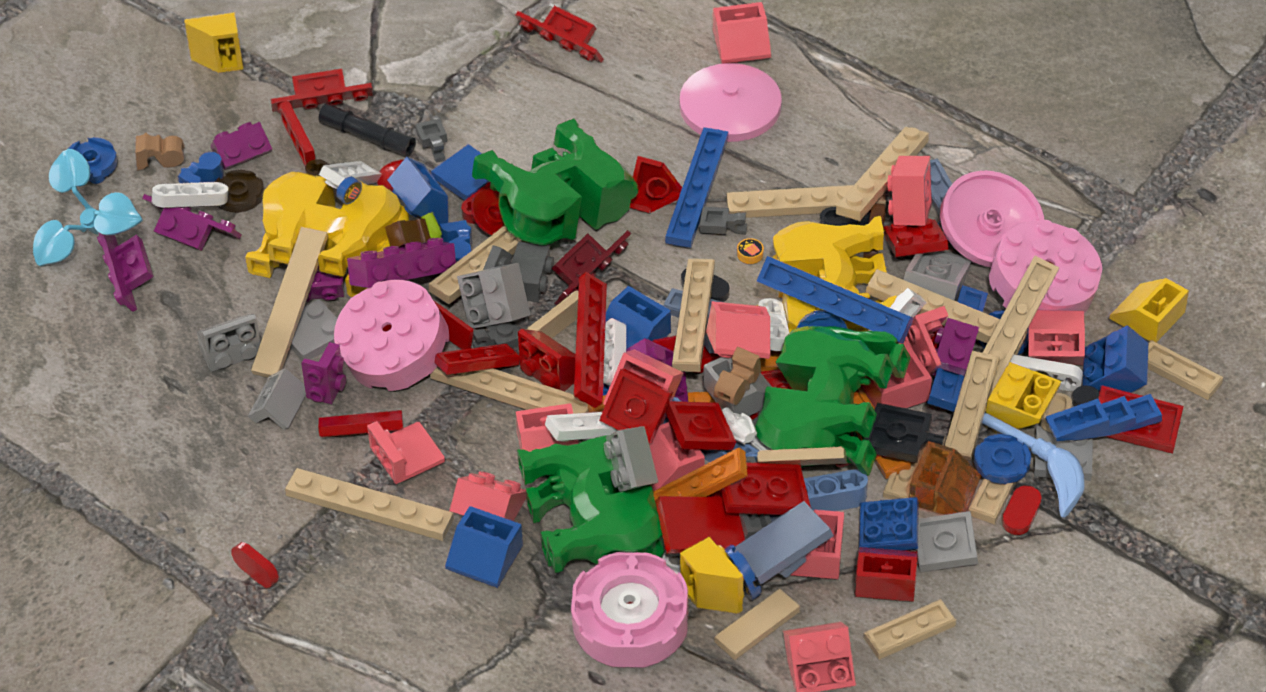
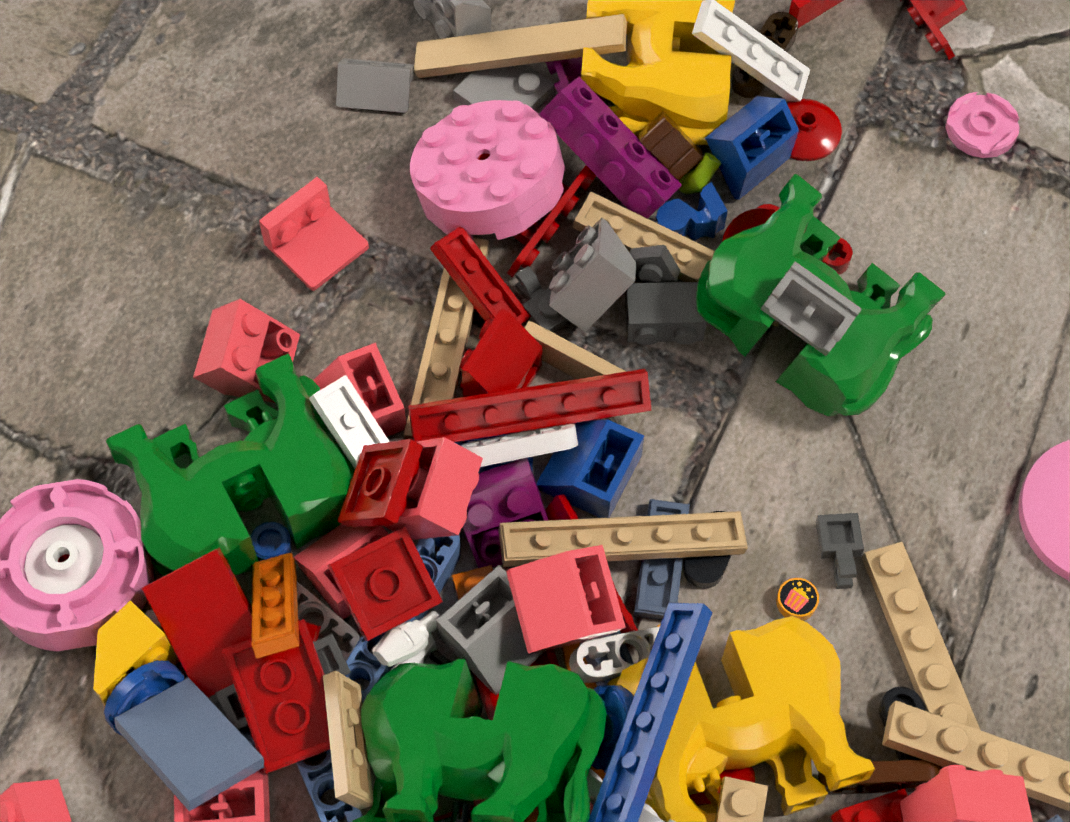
camera: 75 degrees right, 15 degrees up
(255, 564) = (101, 122): red tile -> none
(325, 377) = (405, 113): magenta bracket -> none
(349, 190) = (694, 45): tile -> none
(358, 423) = (352, 179): red tile -> none
(367, 130) = (872, 66): black piece -> none
(369, 504) = (225, 222): tan plate -> none
(433, 89) = (978, 134): none -> bright pink tile
(434, 135) = (889, 139): dark grey plate -> none
(457, 173) = (844, 195): blue tile -> none
(484, 546) = (159, 365): blue slope -> none
(577, 169) = (810, 308): none -> light grey hinge
(586, 257) = (704, 376): dark red bracket -> none
(630, 459) = (260, 493): light grey slope -> none
(655, 185) = (876, 437): red slope -> none
(696, 187) = (903, 498): blue plate -> none
(733, 384) = (457, 610): medium nougat leg -> none
(757, 624) = (86, 744): tan tile -> none

